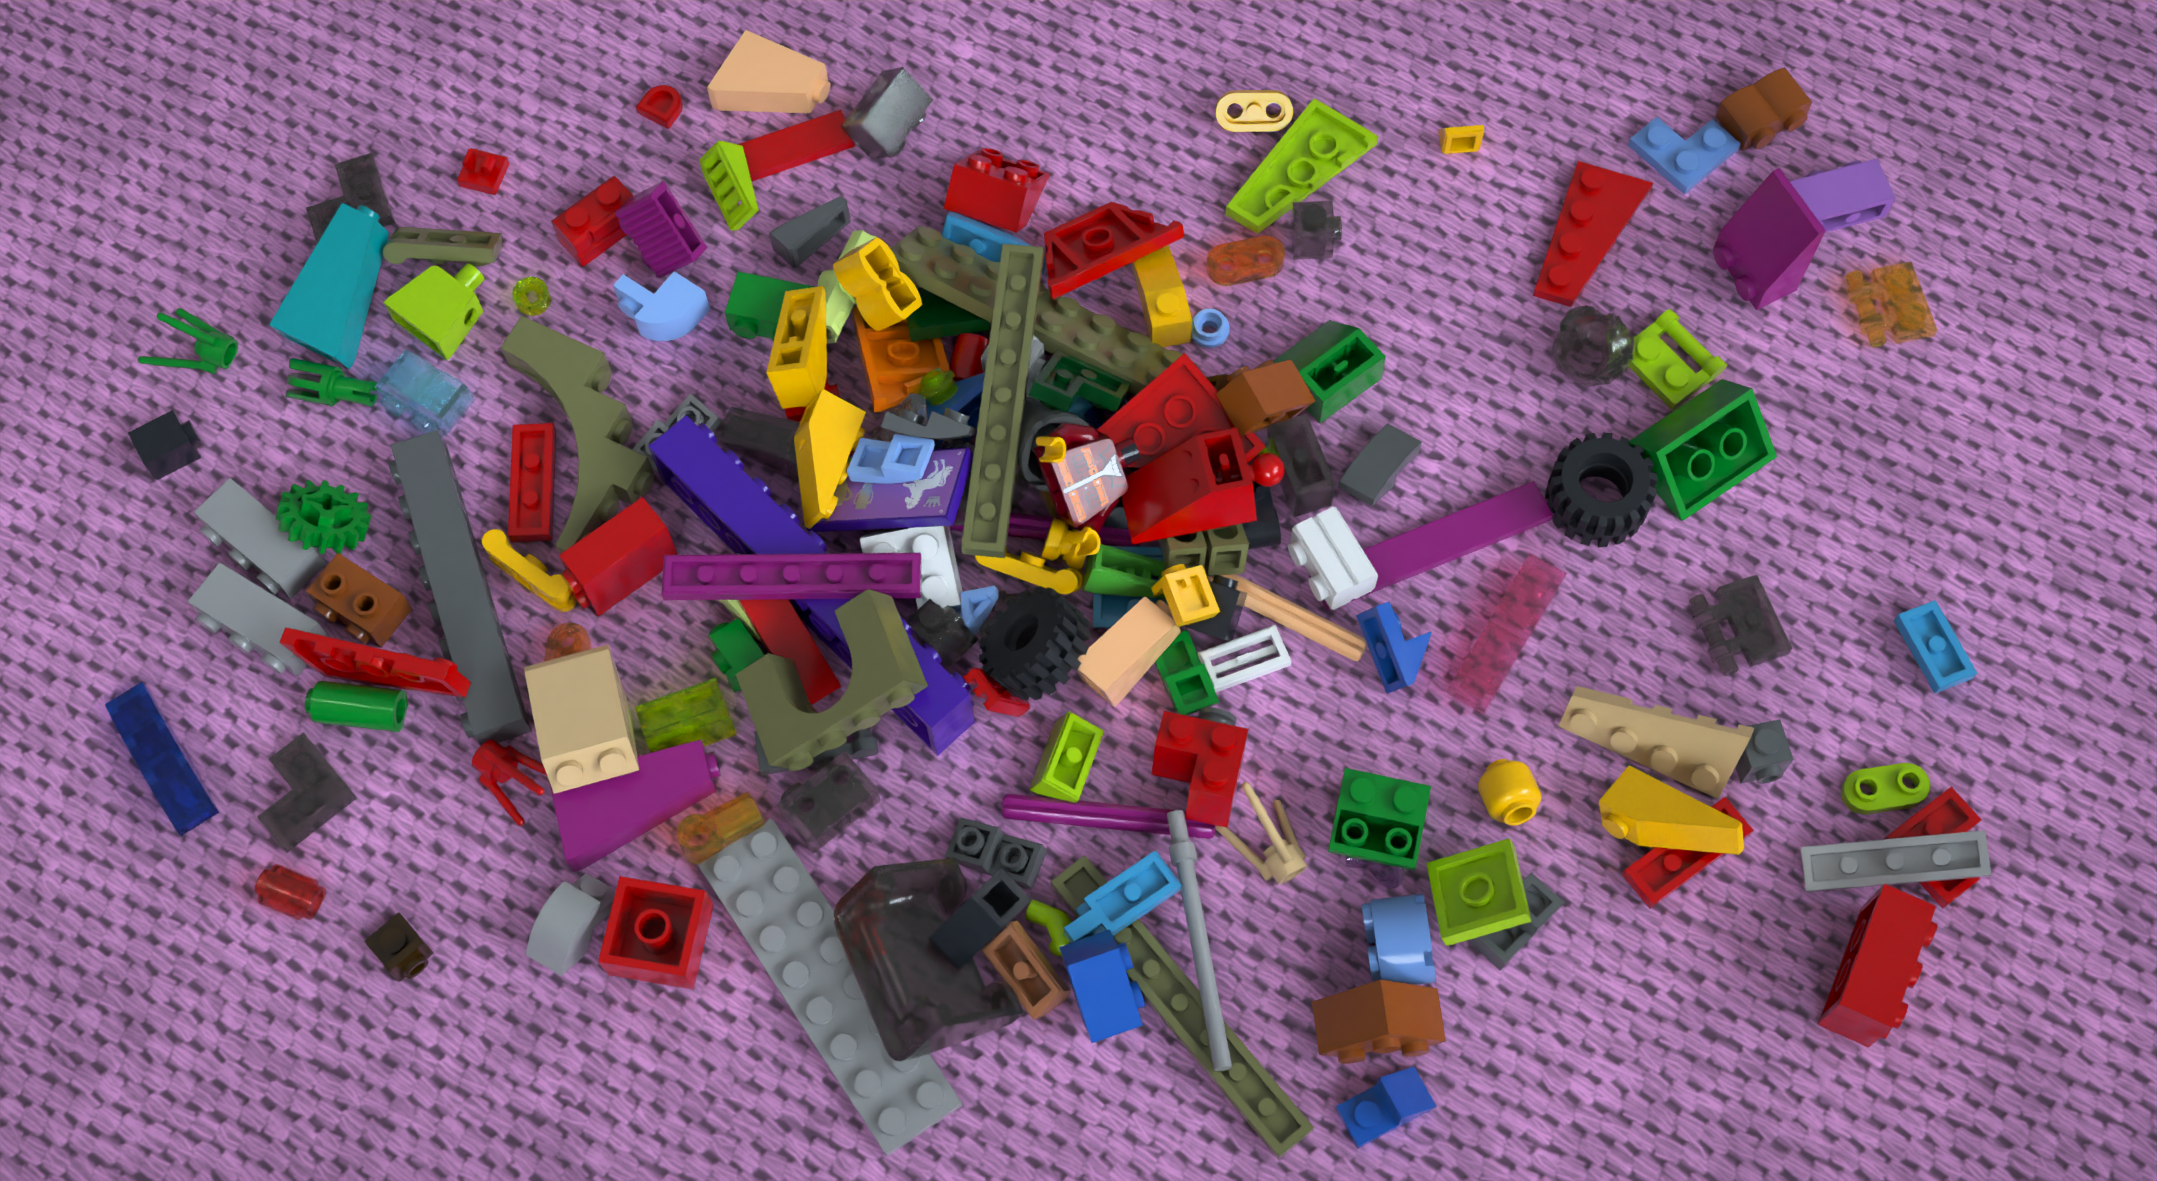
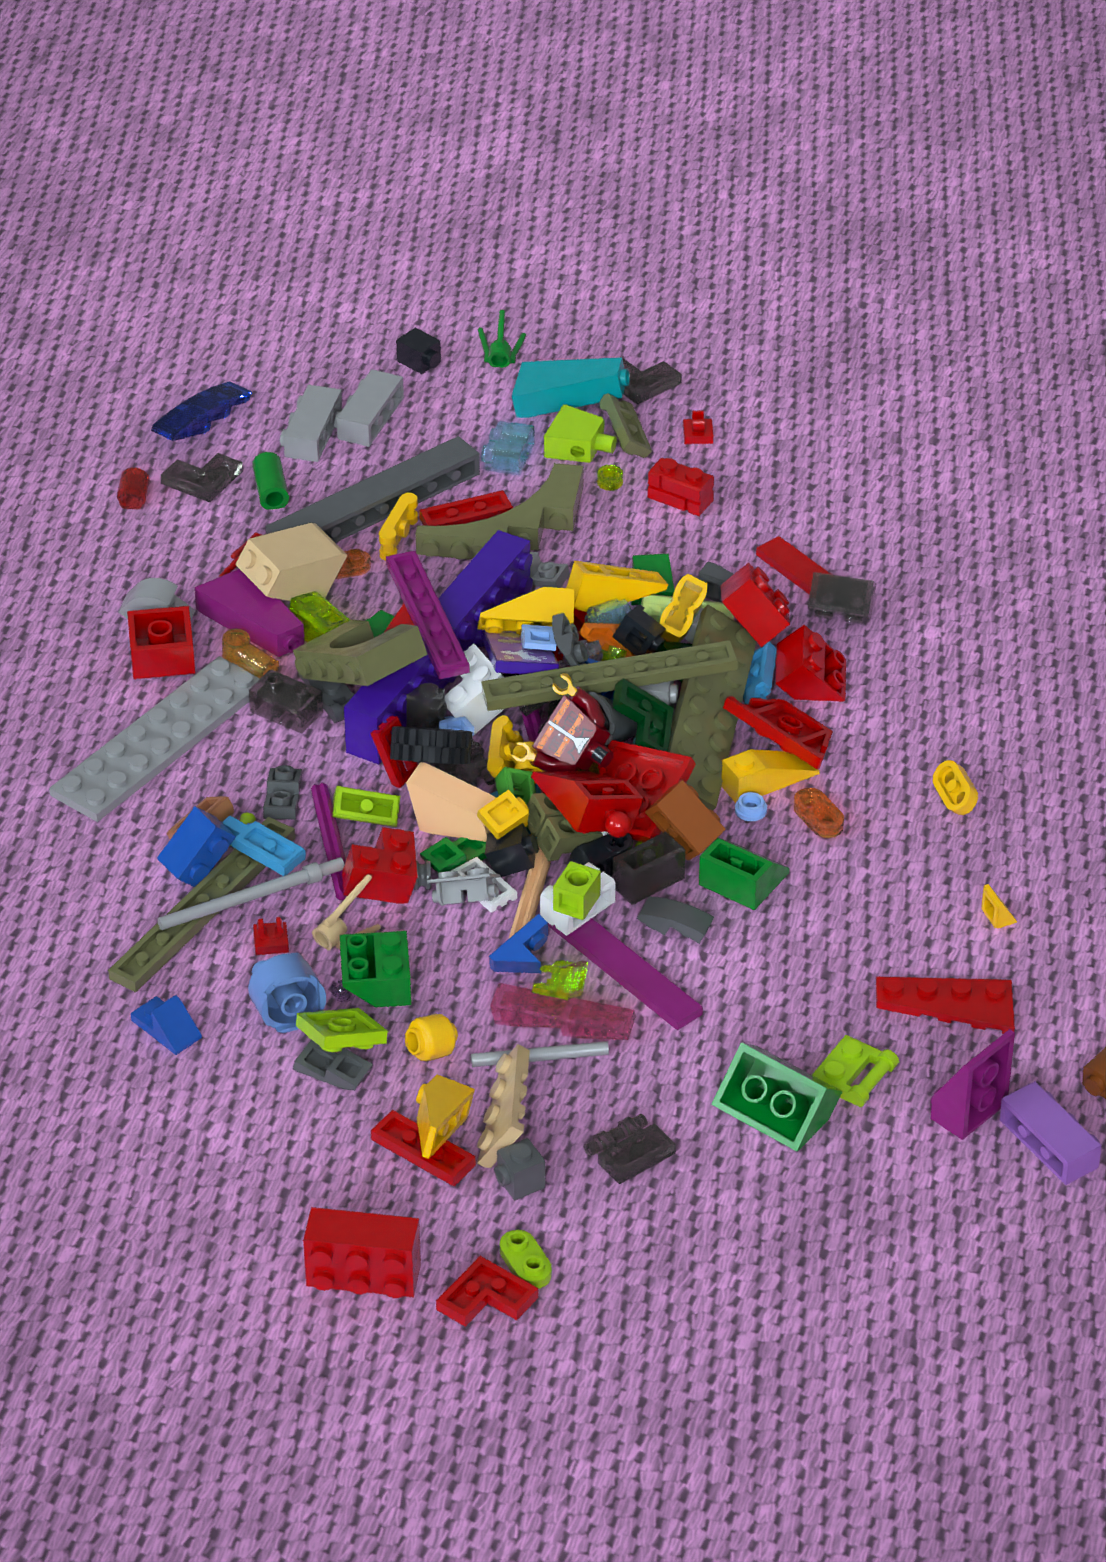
camera: 70 degrees right, 25 degrees down
(323, 517) = (394, 425): green gear -> none
(331, 385) = (495, 402): green arm -> none
(359, 601) = (343, 459): dark orange brick -> none
(373, 665) = (296, 467): red wing -> none
(400, 948) = (113, 545): dark brown bracket -> none
(617, 557) = (434, 547): red brick -> none
(660, 230) = (681, 507): magenta brick -> none
(661, 105) = (797, 497): red tile -> none
(666, 313) = (627, 535): light blue brick -> none
(730, 182) = (755, 534): lime slope -> none
(768, 79) = (842, 535): light nougat slope -> none
(846, 371) = (608, 612): none -> clear light blue brick
(892, 202) = (755, 603): none -> red brick
(902, 344) = (640, 632): none -> black brick
(905, 980) = (190, 763): clear smoke windscreen -> none
(979, 919) = (228, 780): black slope -> none
(1263, 662) = (451, 887): none -> light grey hinge
(1264, 937) = (270, 937): none -> red tile
(1302, 161) = (924, 825): lime wing -> none
(1314, 229) = (860, 837): clear smoke brick -> none
(1364, 566) = (576, 890): none -> lime brick
(1378, 1019) = (225, 996): dark orange brick -> none
(1472, 616) = (566, 980): none -> clear neon green hinge
(1555, 680) = (546, 1053): none -> light grey bar
(1592, 346) = (833, 1010): clear smoke hair -> none
(1594, 518) = (701, 1018): black tyre -> none
(1680, 160) = (1051, 1045): medium blue plate -> none
(1896, 861) = (456, 1256): light grey plate -> none
(1901, 300) = (980, 1204): clear yellow plate -> none
(1935, 646) = (661, 1266): dark azure plate -> none

